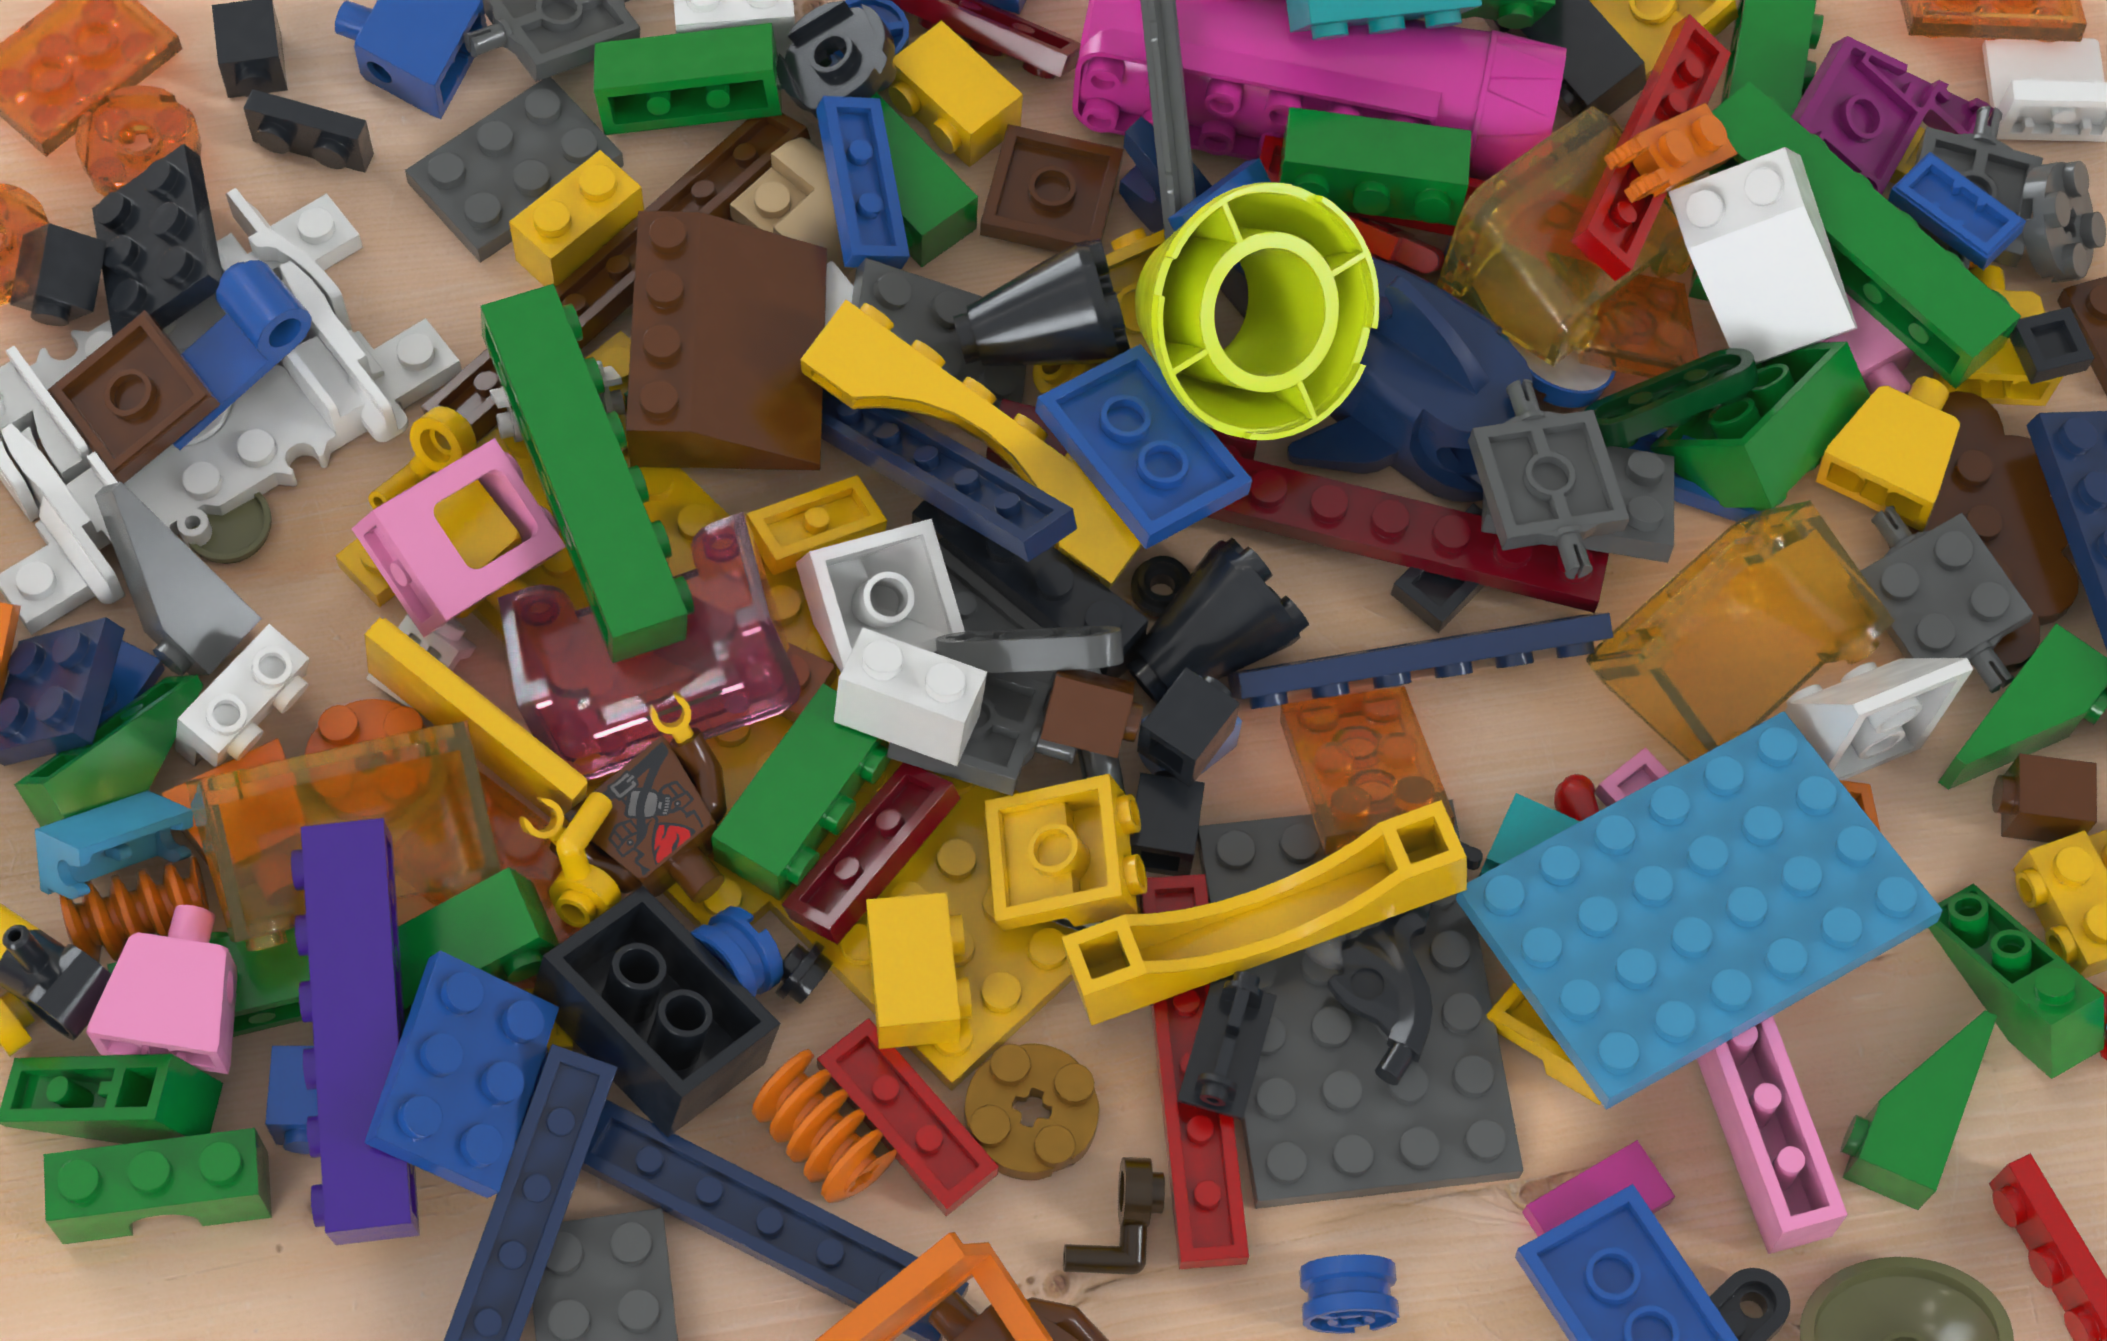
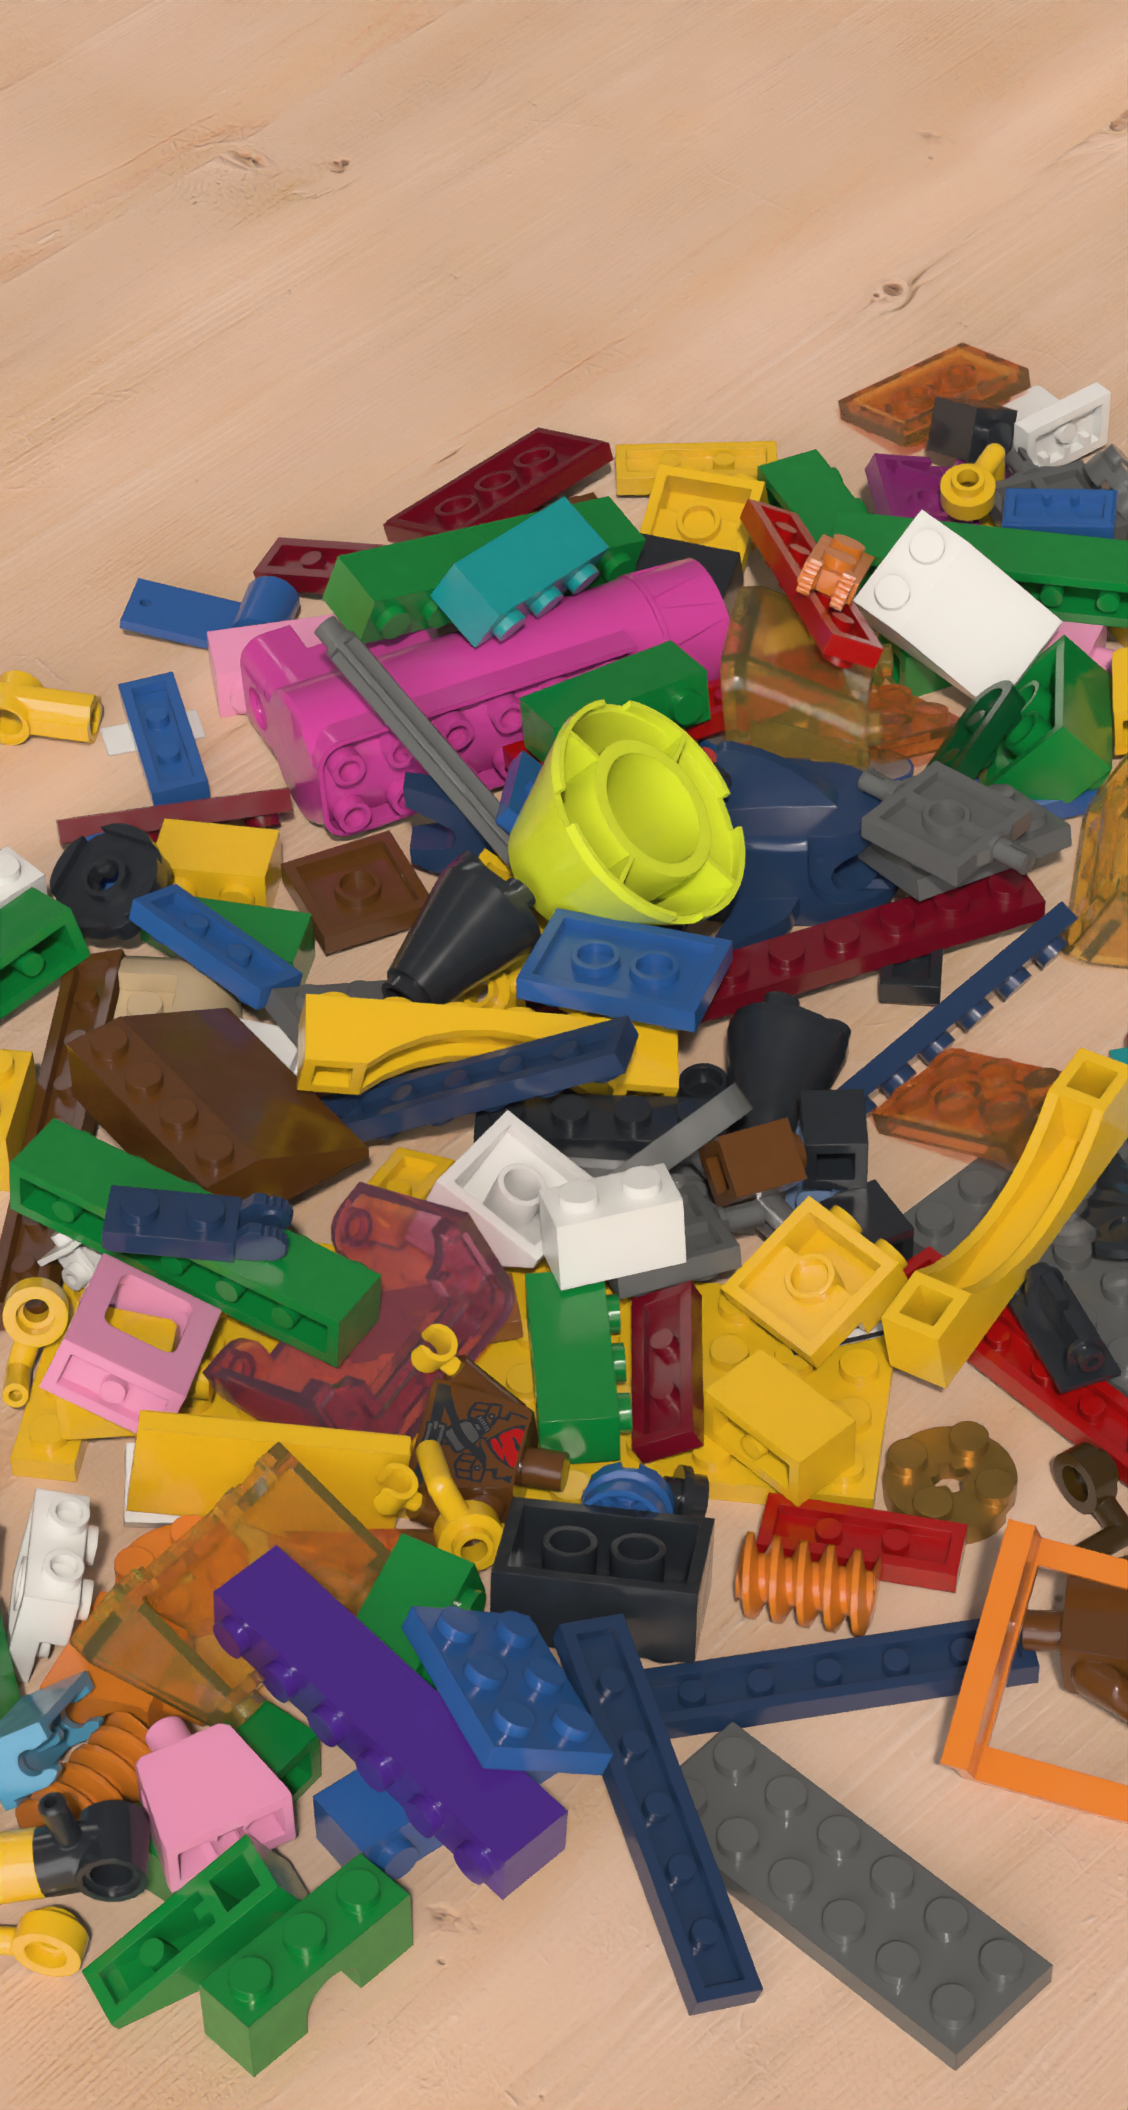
camera: 30 degrees left, 20 degrees down
(566, 465) = (196, 1224): none -> dark blue hinge
(1908, 144) = (979, 499): none -> yellow plate
(1978, 57) = (967, 426): none -> black brick

